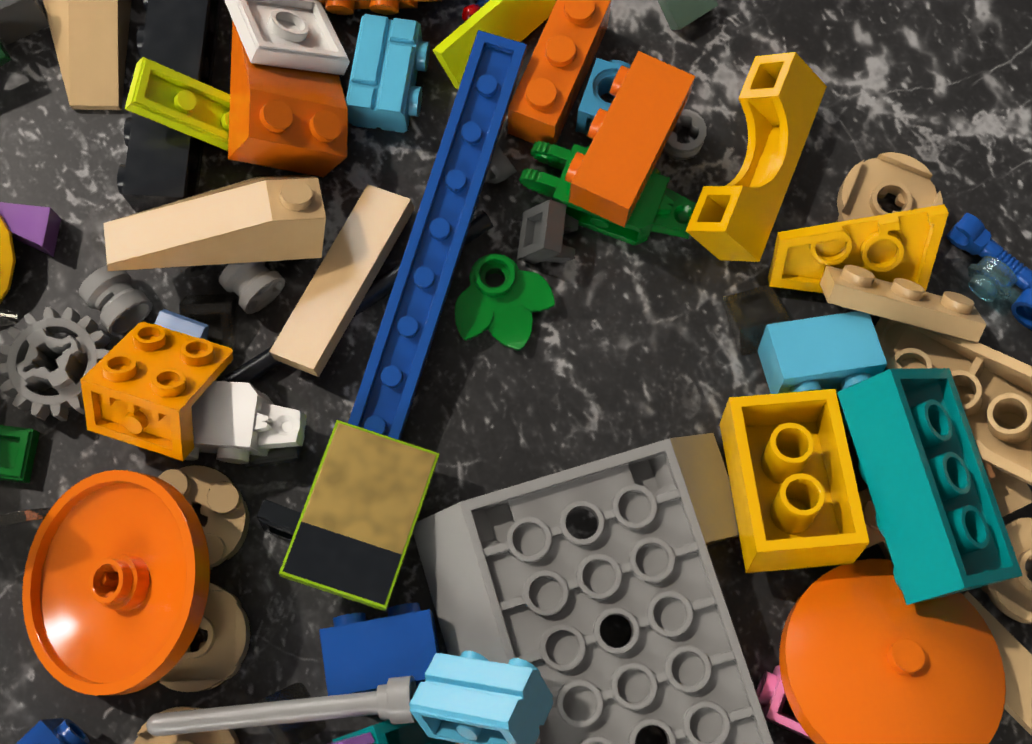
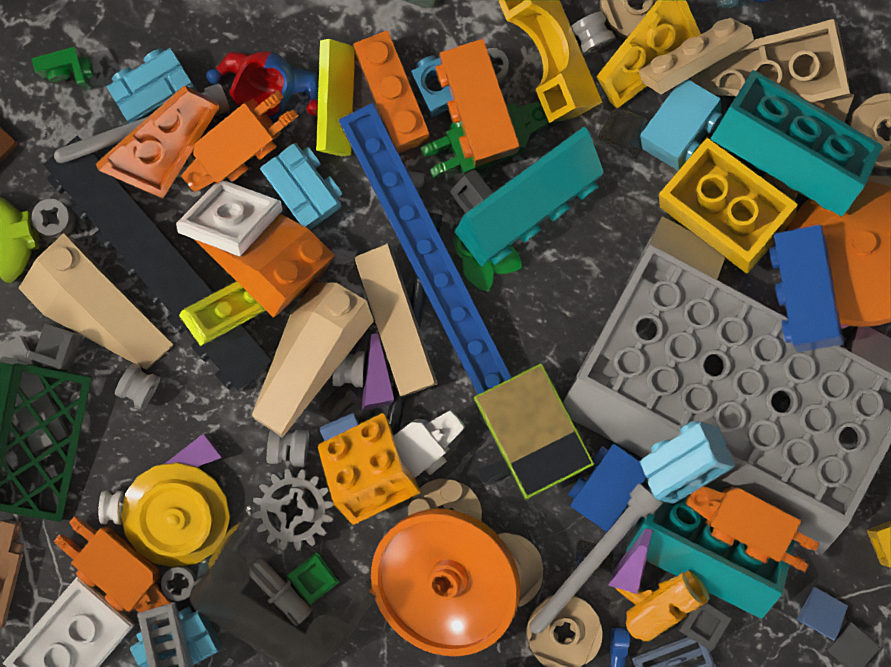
camera: 40 degrees left, 10 degrees up
(42, 108) = (137, 386): none -> light grey wheel
(260, 320) = (377, 385): none -> medium lavender piece
(594, 279) = (531, 198): none -> teal slope
(793, 644) = (806, 289): none -> blue brick
(814, 191) = (593, 33): none -> light grey wheel

